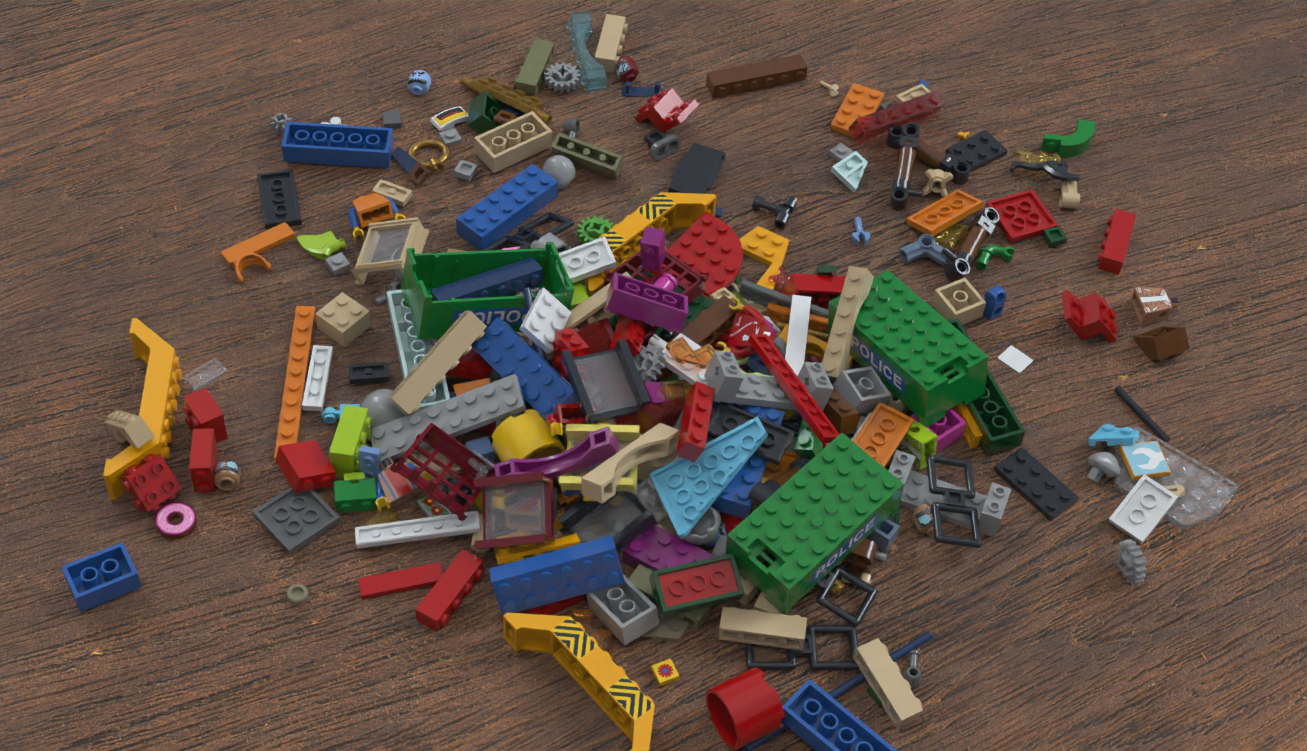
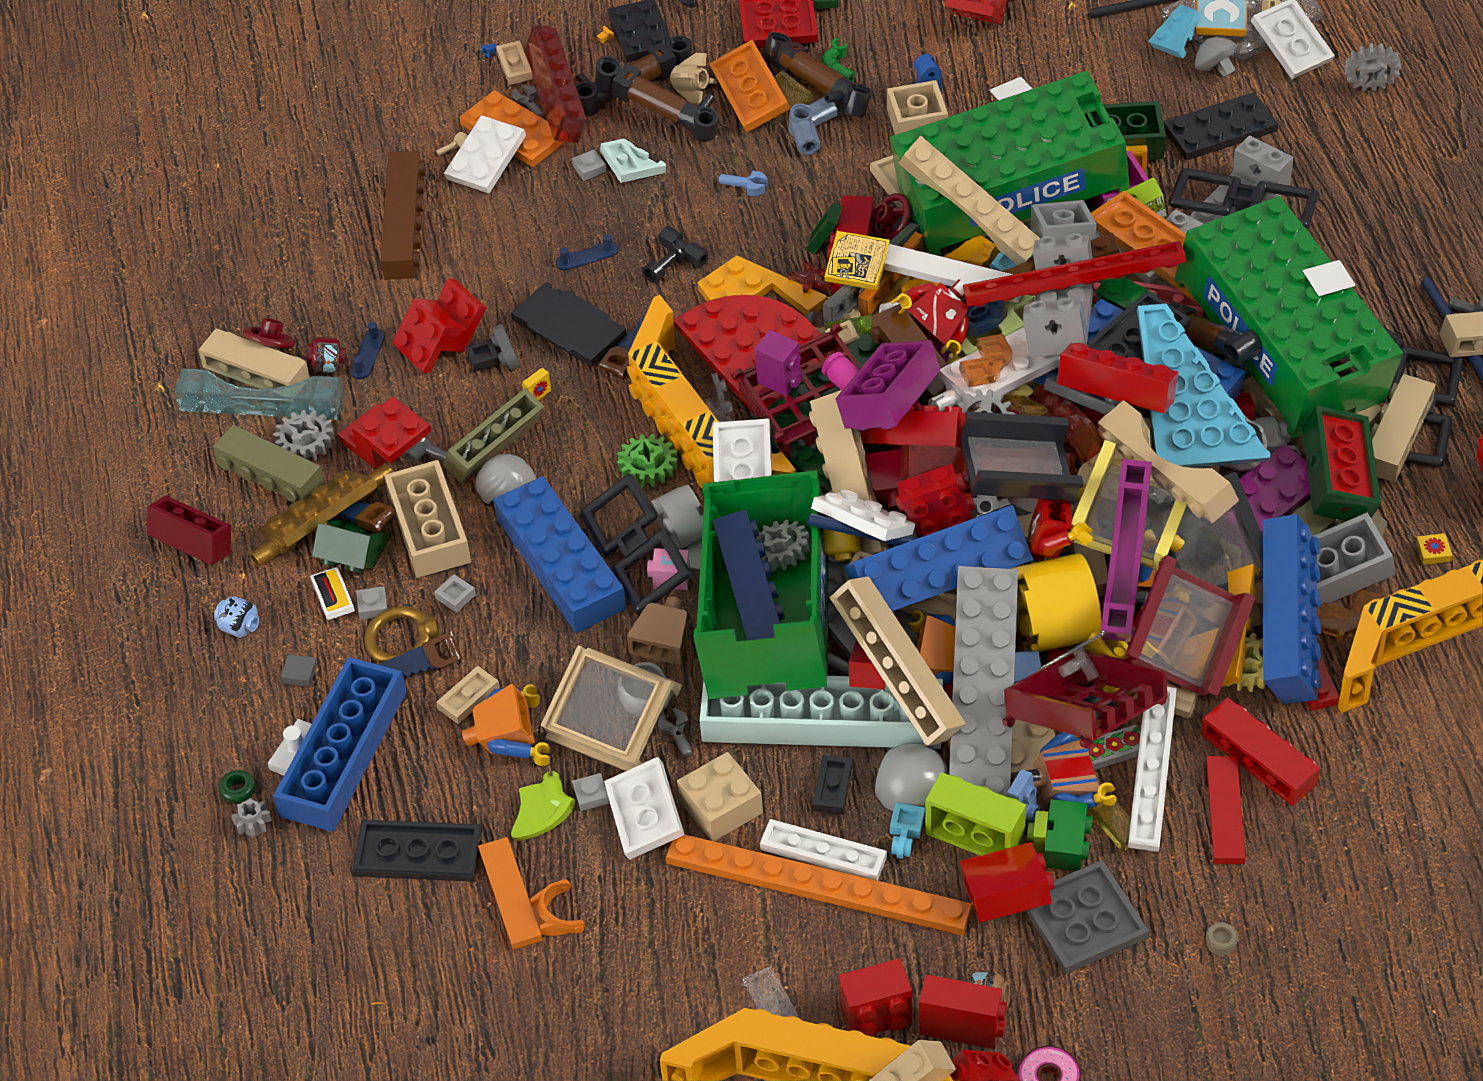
camera: 65 degrees left, 0 degrees up
(299, 117) = (235, 777): none -> dark green piece
(326, 286) = (643, 808): none -> white plate
(472, 45) = (189, 530): none -> dark red brick
(572, 107) = (384, 432): none -> red bracket
(632, 40) = (269, 334): none -> dark red piece
(638, 168) = (538, 383): none -> yellow tile
(760, 168) = (596, 253): none -> dark blue piece
(785, 286) = (857, 260): none -> tile
(824, 100) = (485, 154): none -> white plate
(835, 527) = (1329, 278): none -> white sticker

